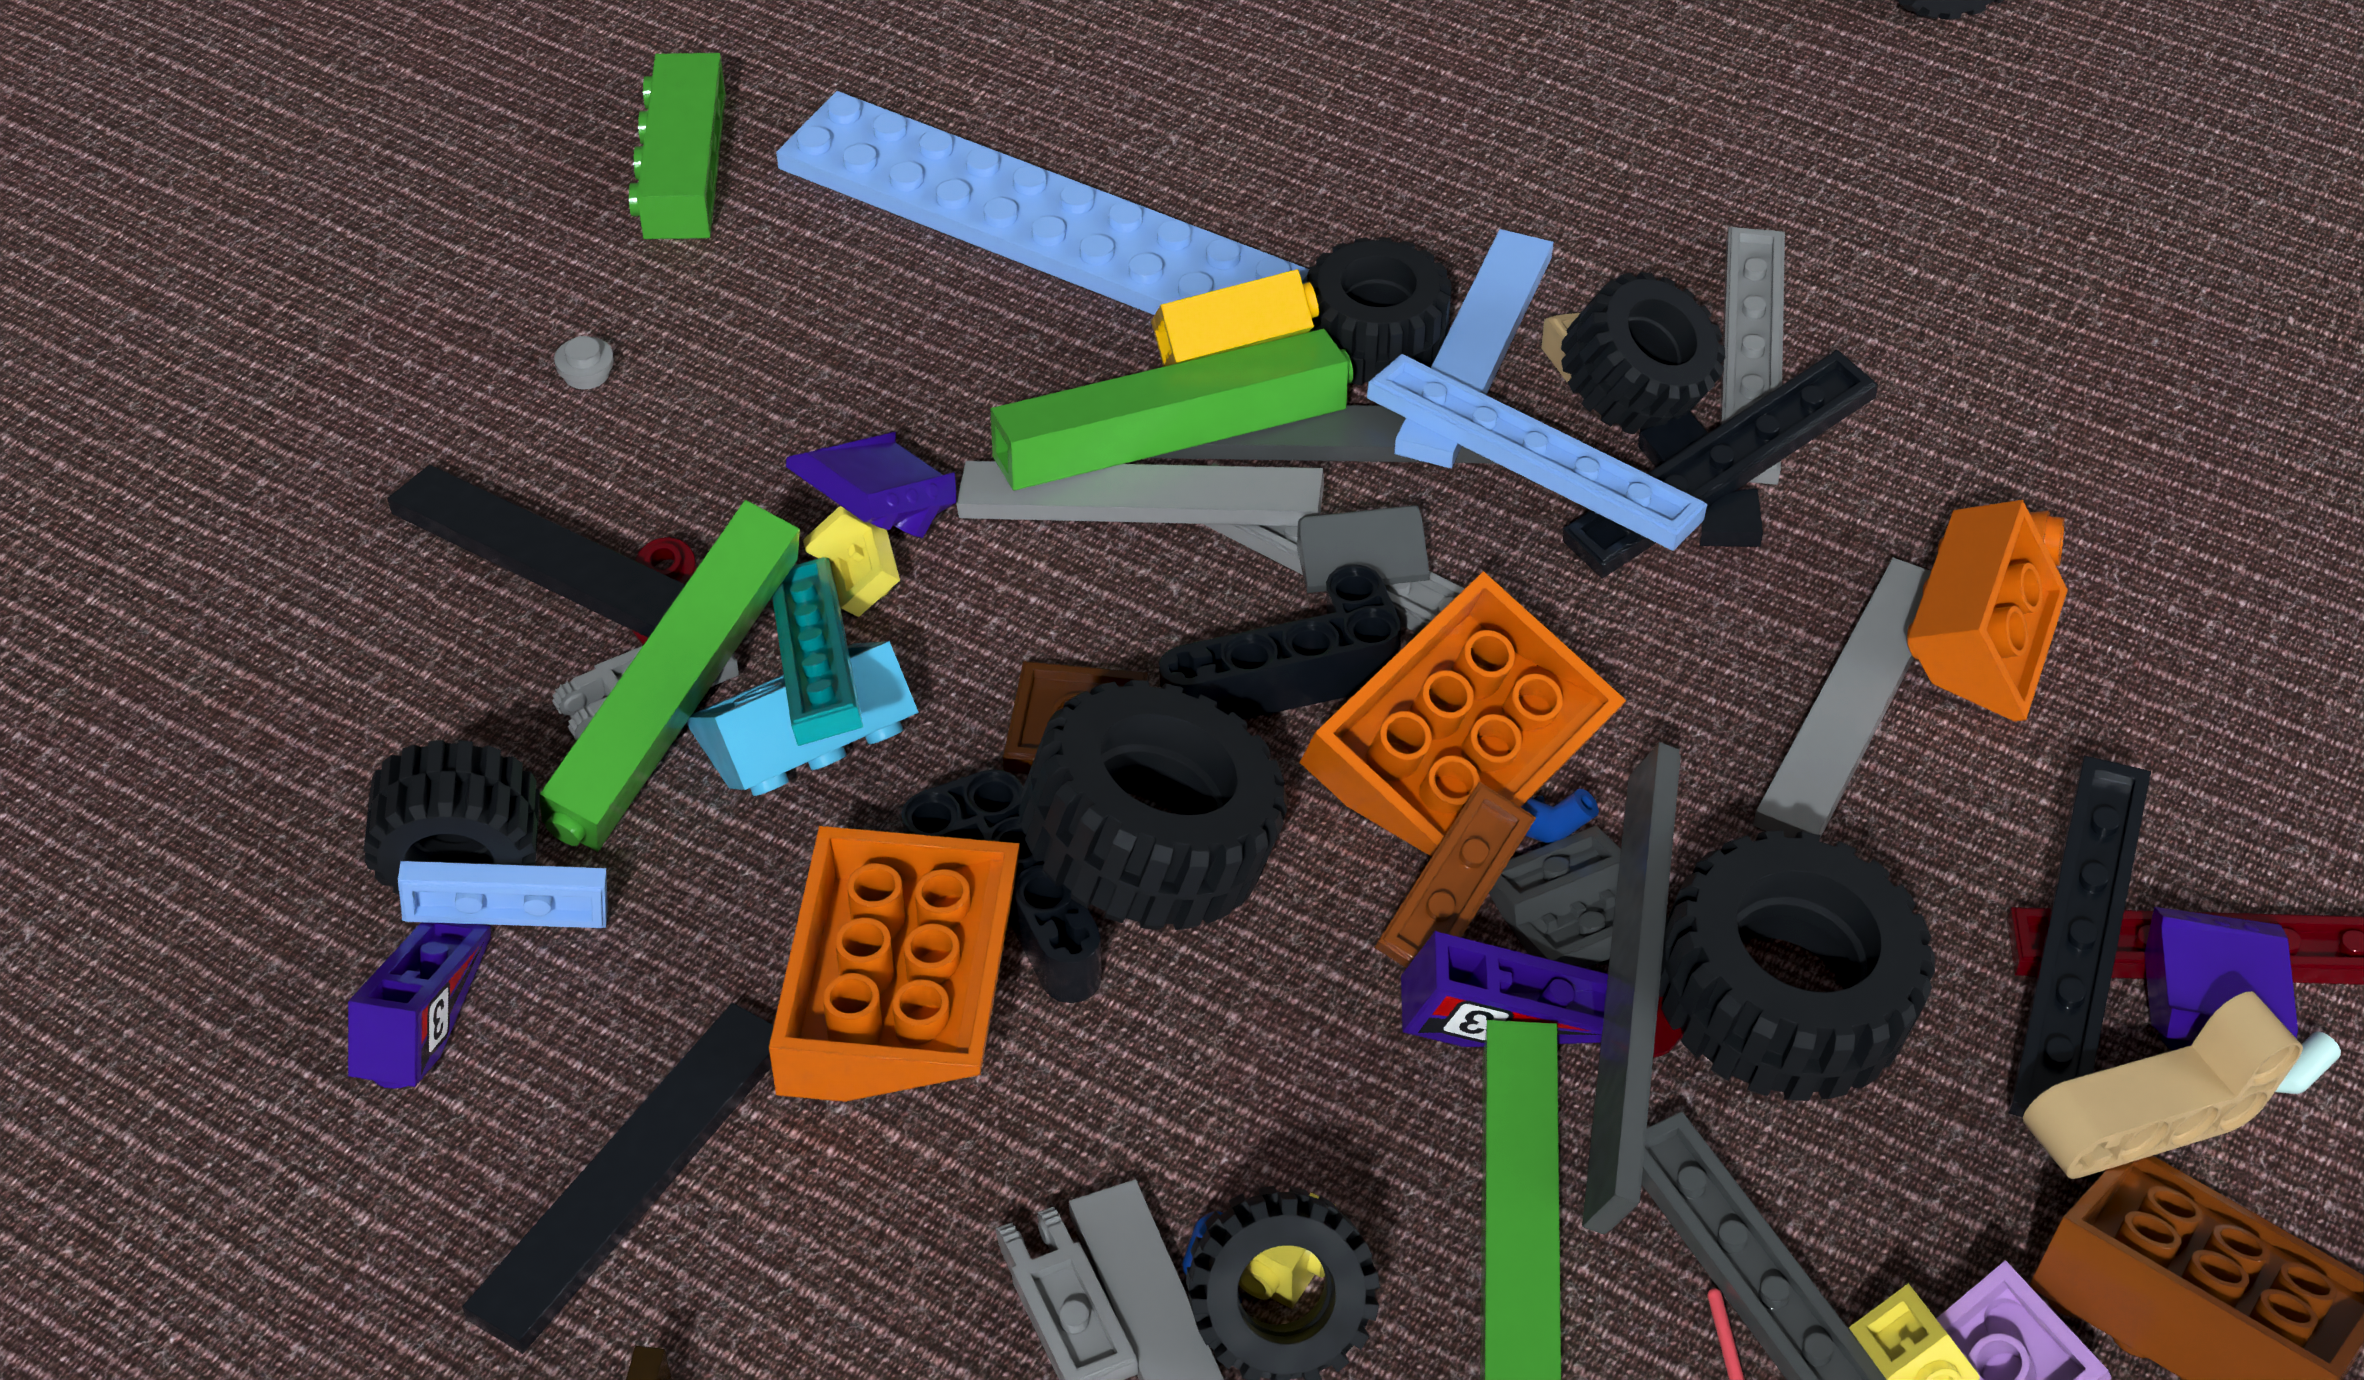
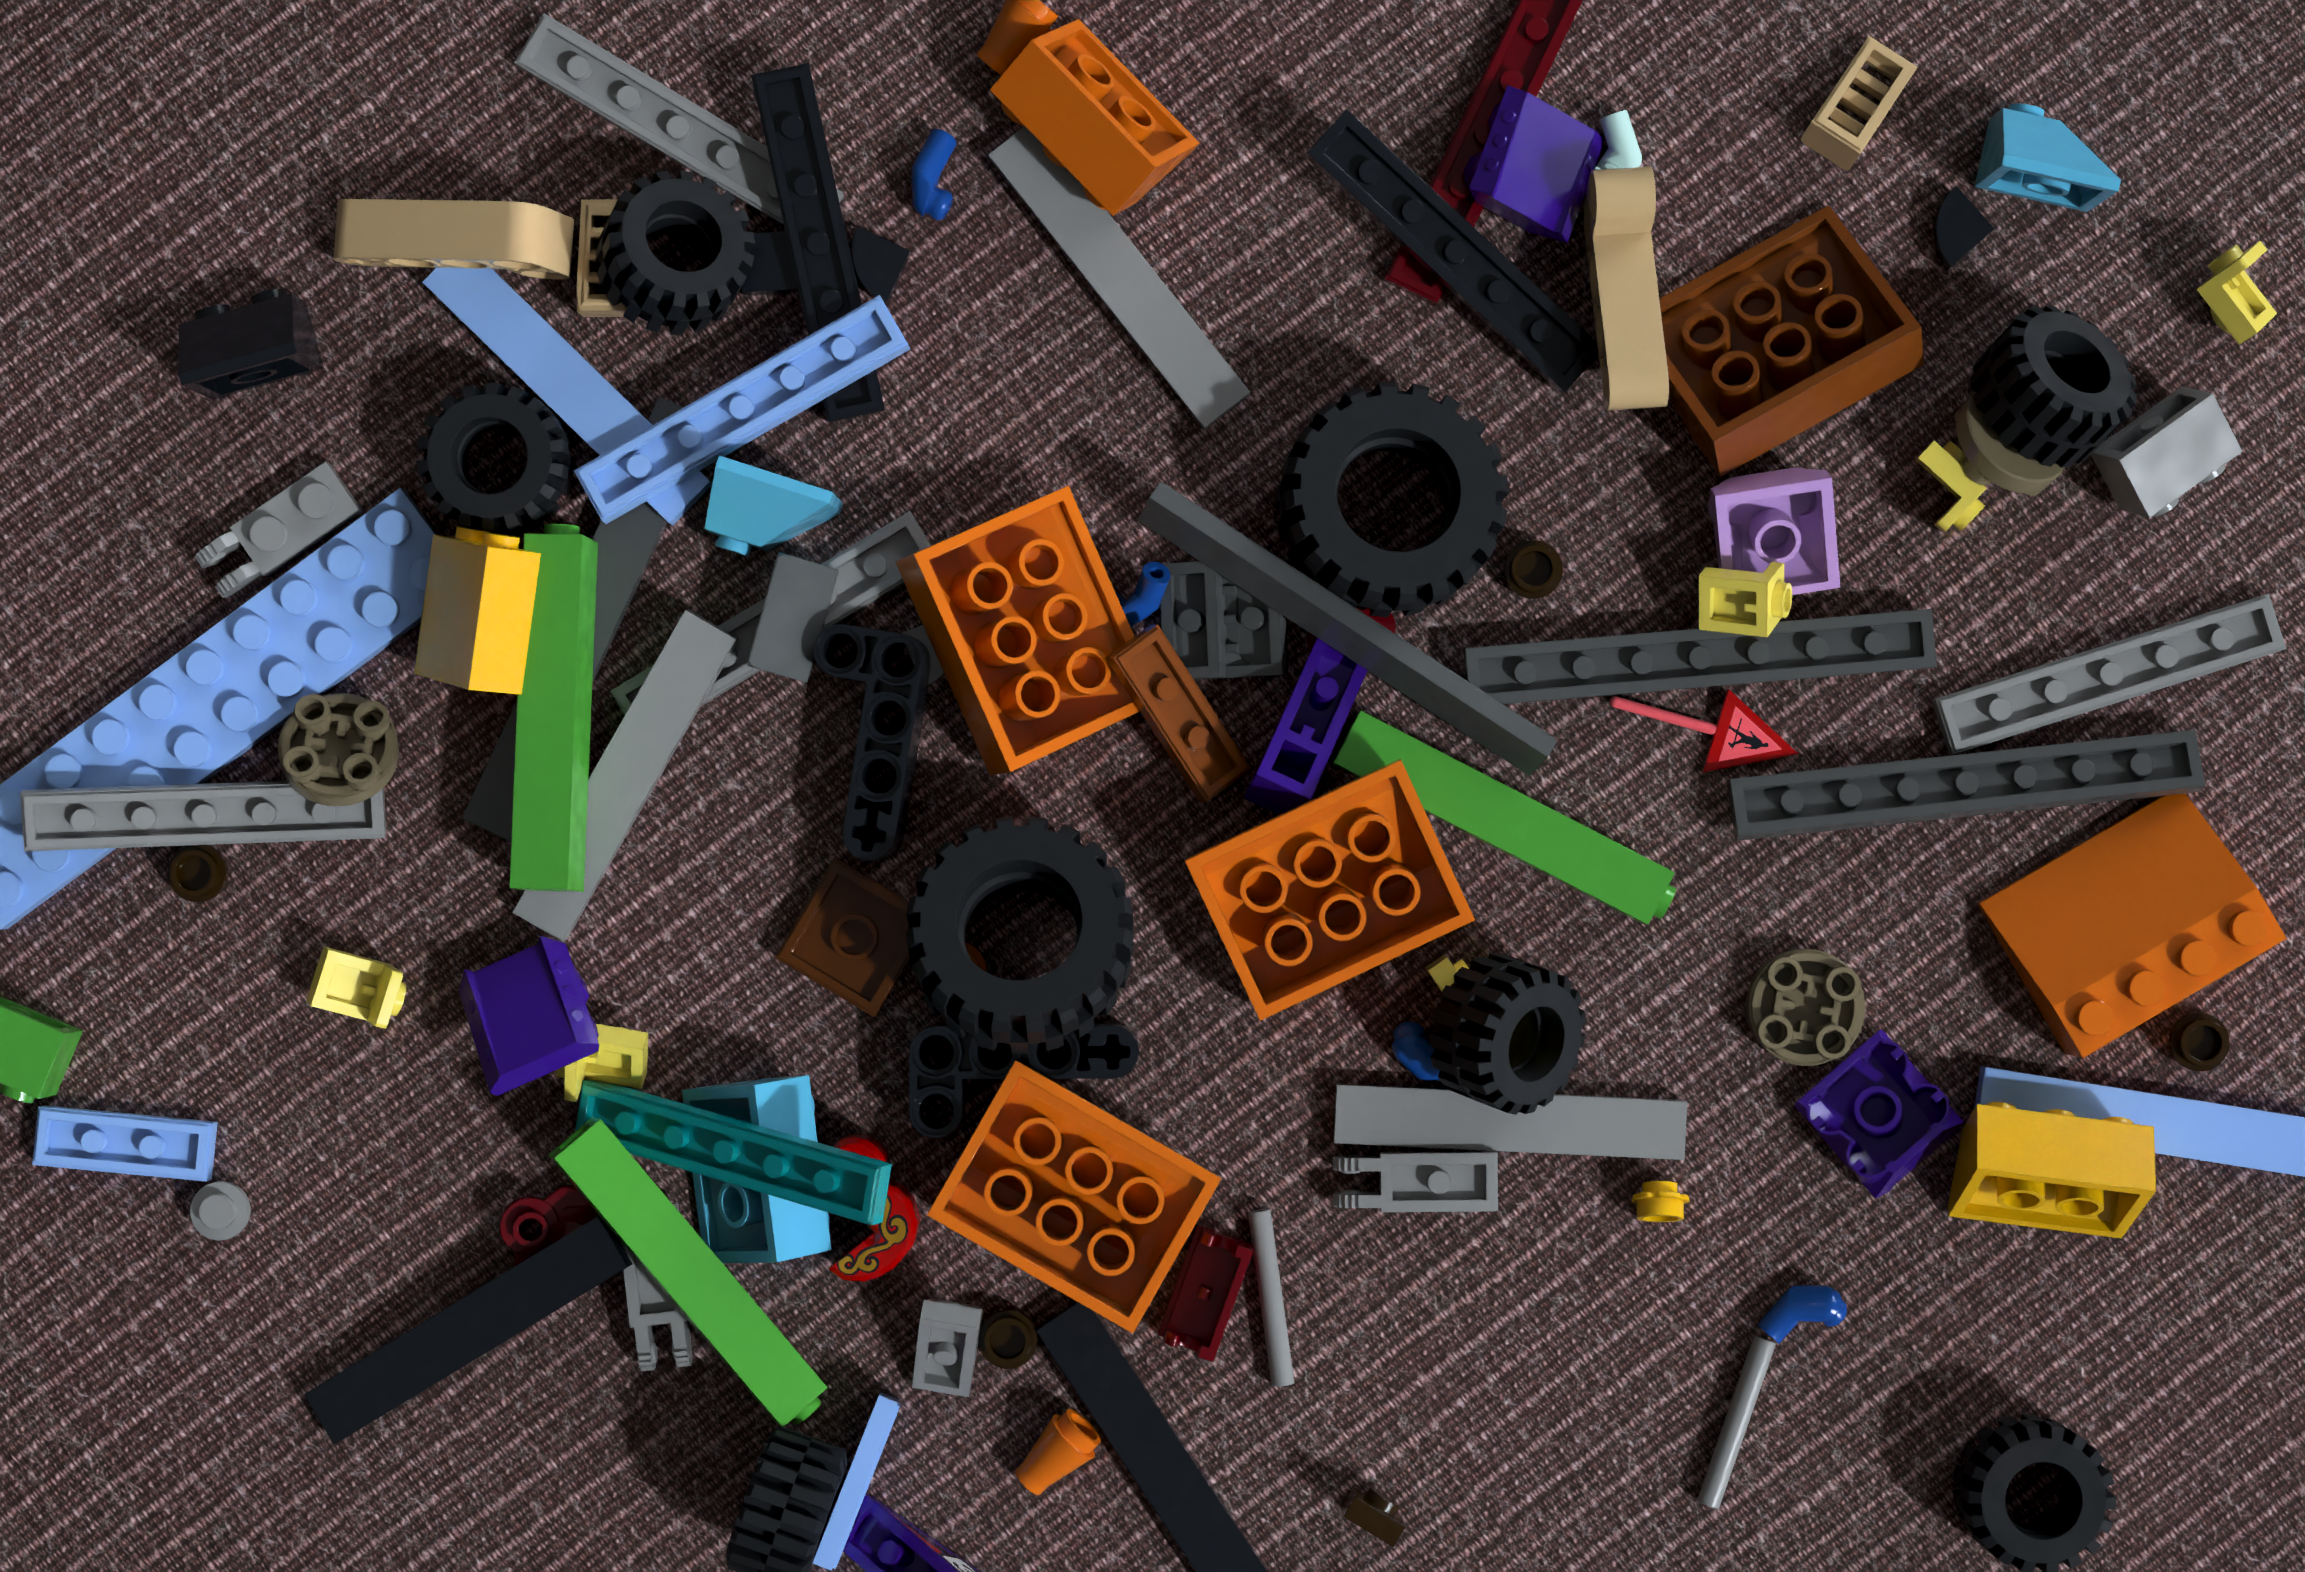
camera: 65 degrees left, 40 degrees up
(609, 1069) = (1060, 1449): none -> orange cone
(619, 287) = (124, 1143): none -> light blue tile
(685, 925) = (947, 1346): none -> light grey slope
(711, 984) = (1008, 1339): none -> dark brown plate
(784, 839) = (891, 1238): none -> red animal
(839, 376) = (357, 987): none -> light yellow bracket
(842, 1148) = (1205, 1292): none -> dark red hinge
(862, 1214) = (1271, 1297): none -> light grey bar
(890, 253) = (198, 873): none -> dark brown plate
(949, 236) = (190, 816): none -> light grey tile
(1053, 295) = (338, 748): none -> dark tan tile
(1224, 211) = (283, 528): none -> light grey hinge
(1349, 1064) = (1330, 889): none -> orange slope
(1368, 137) = (247, 345): none -> black slope
(1457, 492) = (762, 507): none -> medium azure slope
(1559, 222) = (455, 235): none -> tan beam
(1806, 1155) = (1533, 569): none -> dark brown plate
(1827, 527) = (926, 173): none -> blue arm

